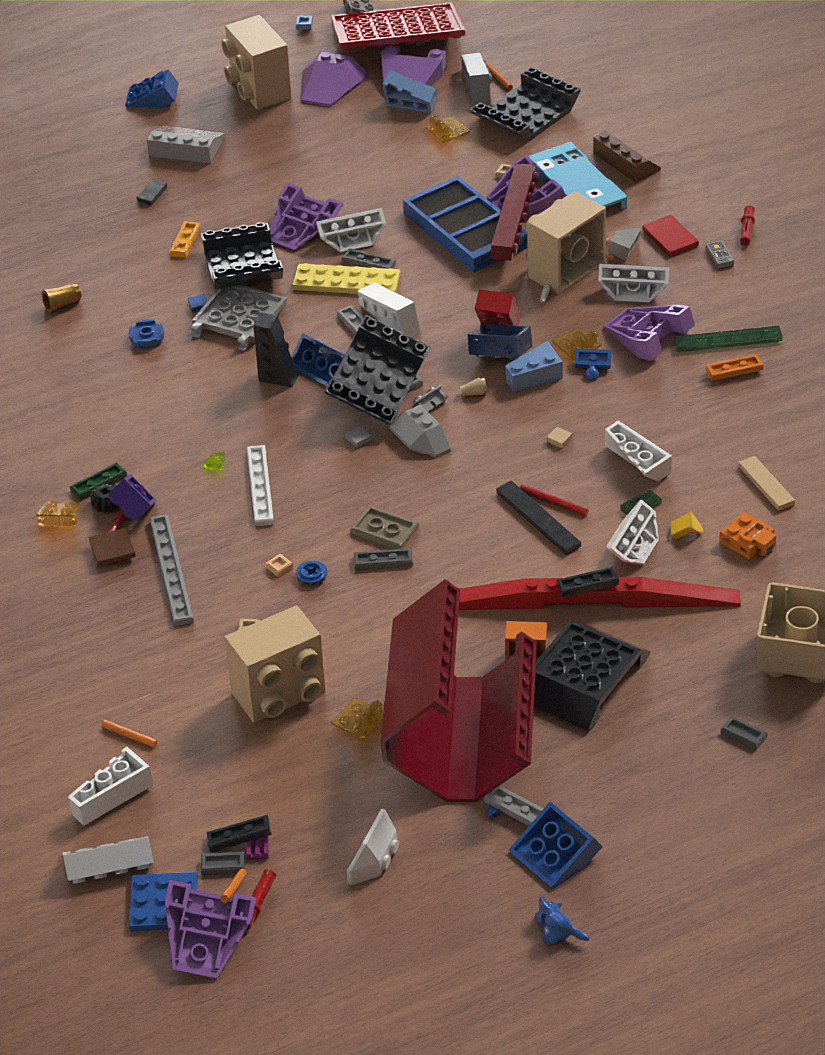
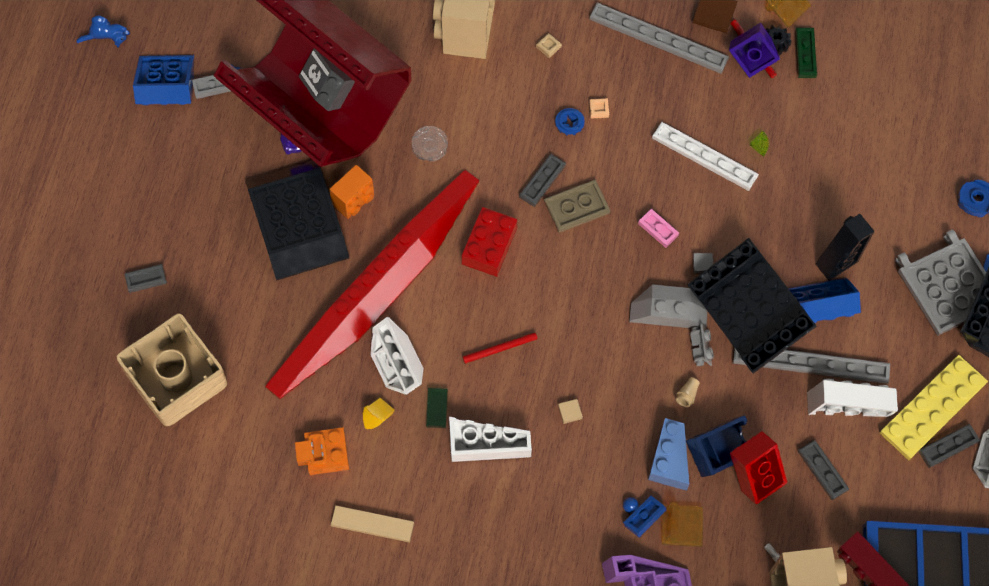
camera: 125 degrees right, 25 degrees up
(355, 471) = (658, 228): none -> bright pink plate
(359, 717) = (399, 45): clear yellow hinge -> none
(444, 732) = (325, 81): none -> dark grey slope
(455, 304) = (823, 470): none -> dark grey tile
(475, 549) = (489, 241): none -> red brick
(538, 517) = (490, 320): black tile -> none
(587, 582) = (366, 272): black tile -> none

